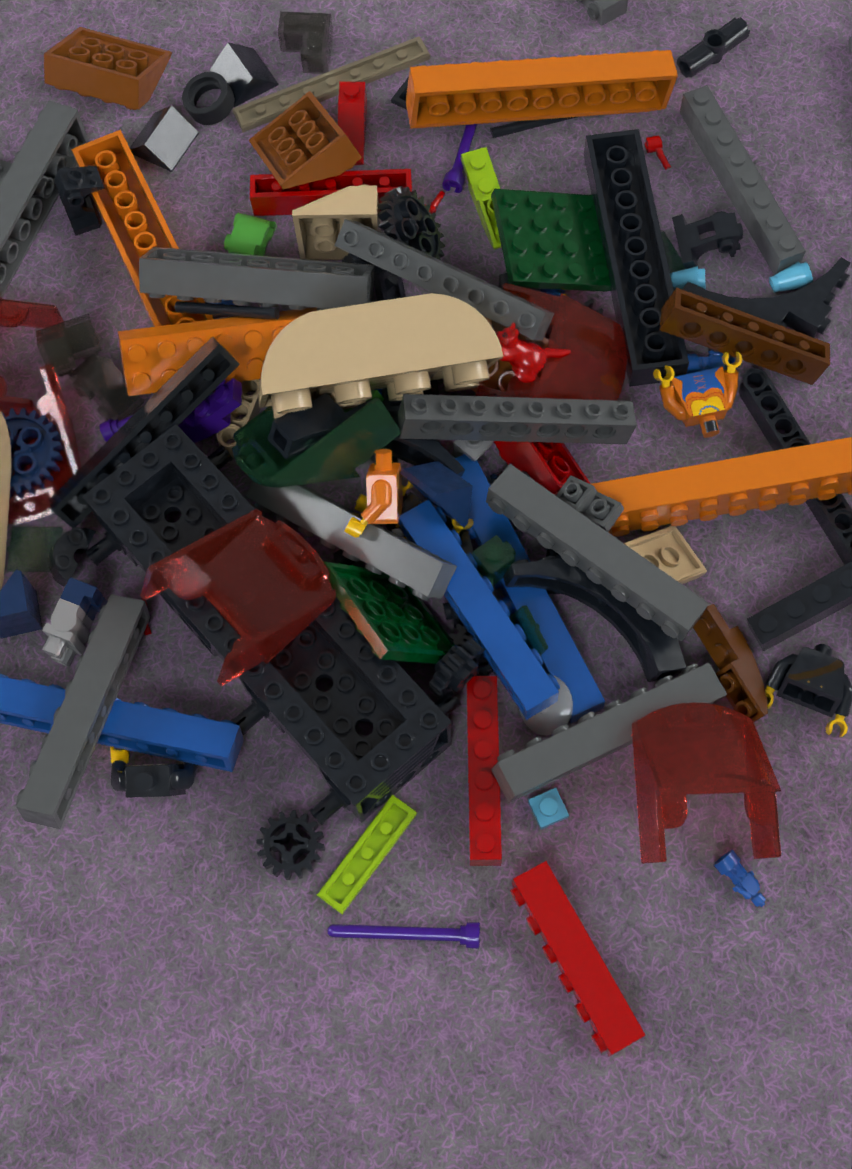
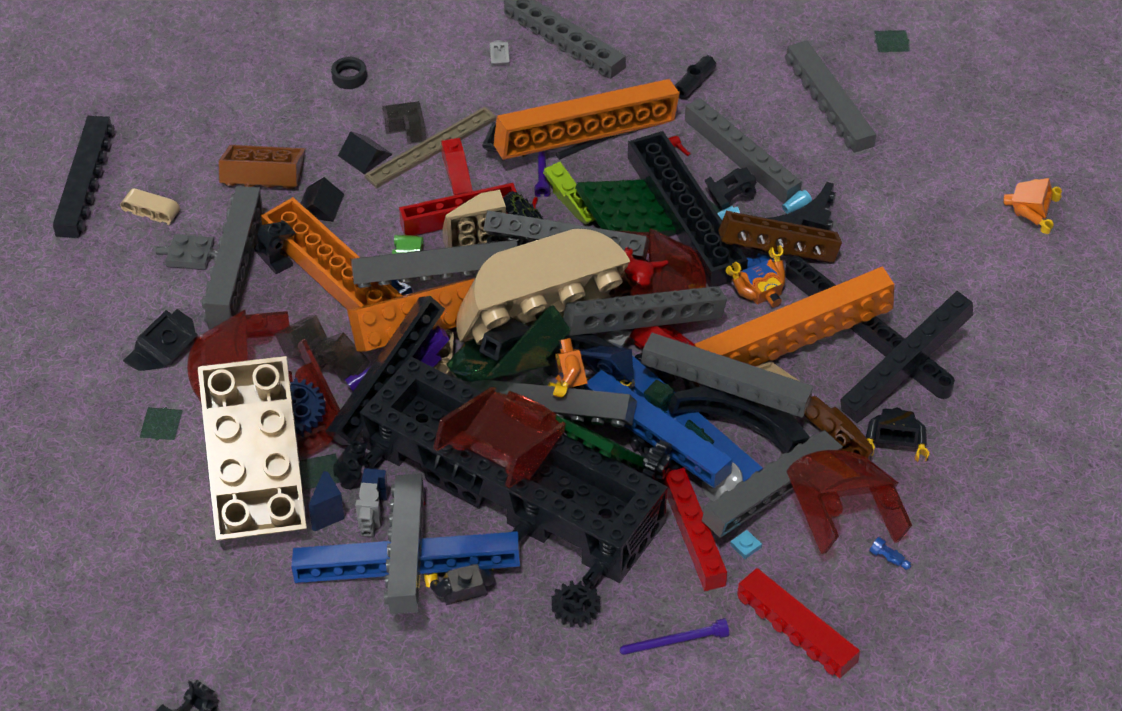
camera: 20 degrees left, 20 degrees down
(199, 85) = (341, 160): black tyre -> none
(227, 310) = (417, 287): black bar -> none
(304, 145) = (432, 180): dark orange slope -> none
(367, 854) = (630, 600): lime tile -> none
(590, 503) = (708, 342): dark grey slope -> none

